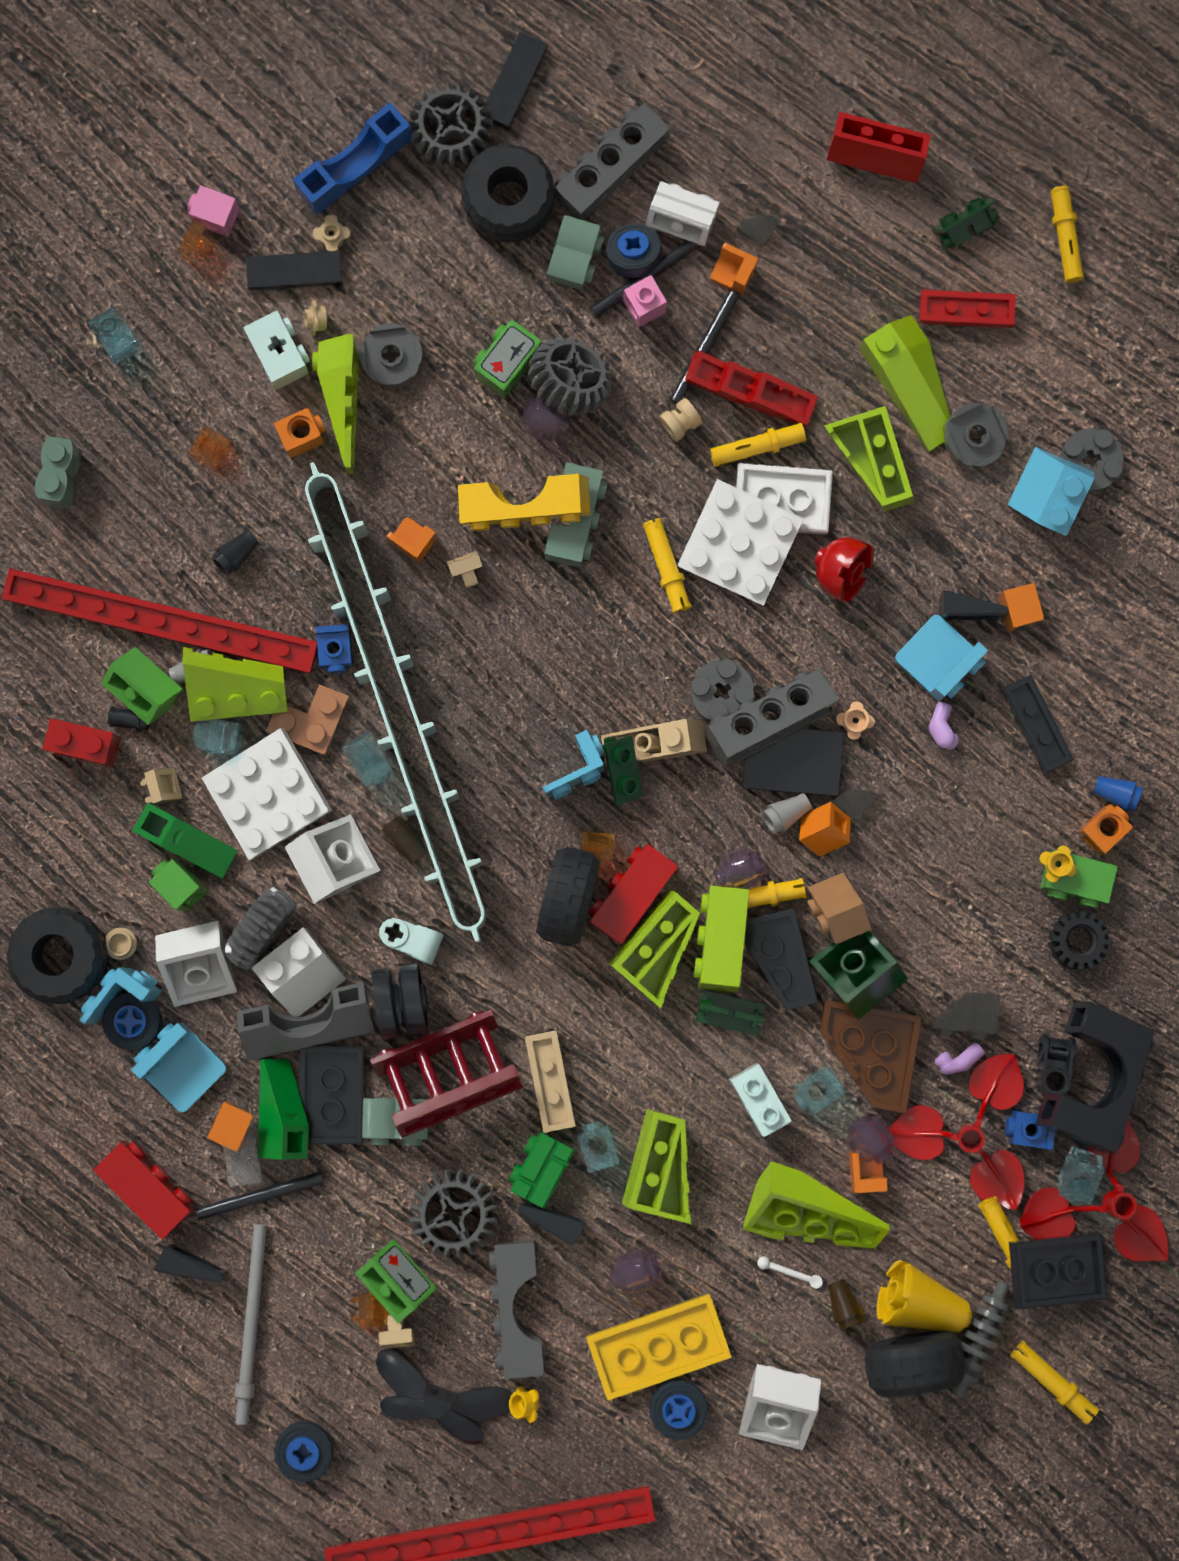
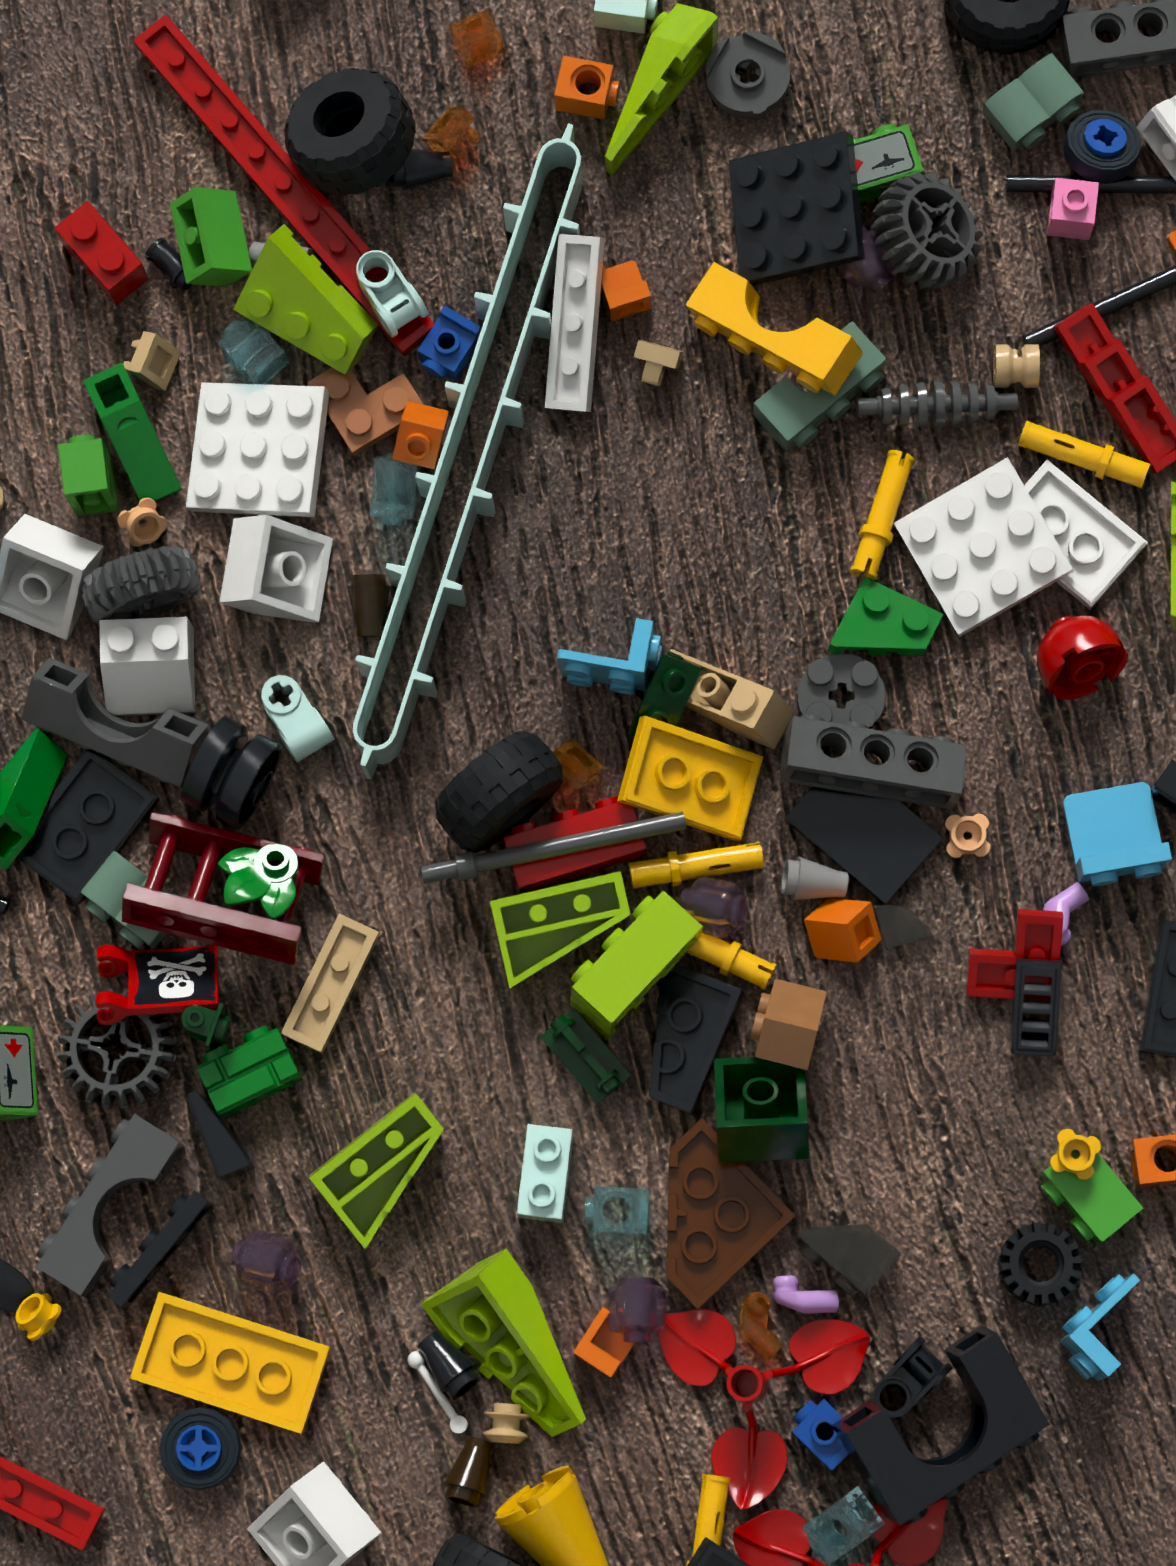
camera: 45 degrees right, 5 degrees down
(201, 568) = (349, 131): none -> black tyre
(236, 516) = (448, 130): none -> clear orange tile
(237, 888) = (147, 532): none -> light nougat plate
(279, 643) = (393, 298): none -> light aqua piece
(359, 715) = (420, 435): none -> orange brick
(401, 581) = (574, 322): none -> white plate
(451, 1156) = (158, 981): none -> flag
(465, 1055) = (255, 879): none -> green plate
(482, 417) = (797, 209): none -> black plate
(498, 1161) = (206, 1024): none -> dark green hinge
(566, 1312) = (158, 1248): none -> black plate
(582, 953) = (467, 866): none -> dark grey bar
(601, 1161) = (332, 1113): clear light blue brick -> none
(651, 476) = (937, 404): none -> dark grey piece
(672, 805) = (690, 774): none -> yellow tile
(715, 629) = (885, 623): none -> green wing
(715, 849) = (694, 865): none -> yellow pin
(786, 1252) = (450, 1367): none -> black cone
(844, 1261) = (506, 1424): none -> tan wheel
(942, 1096) = (753, 1324): none -> clear orange arm
(949, 775) = (993, 971): none -> red plate
(981, 810) = (1035, 1043): none -> black slope
(1132, 958) = (1088, 1353): none -> medium azure bracket

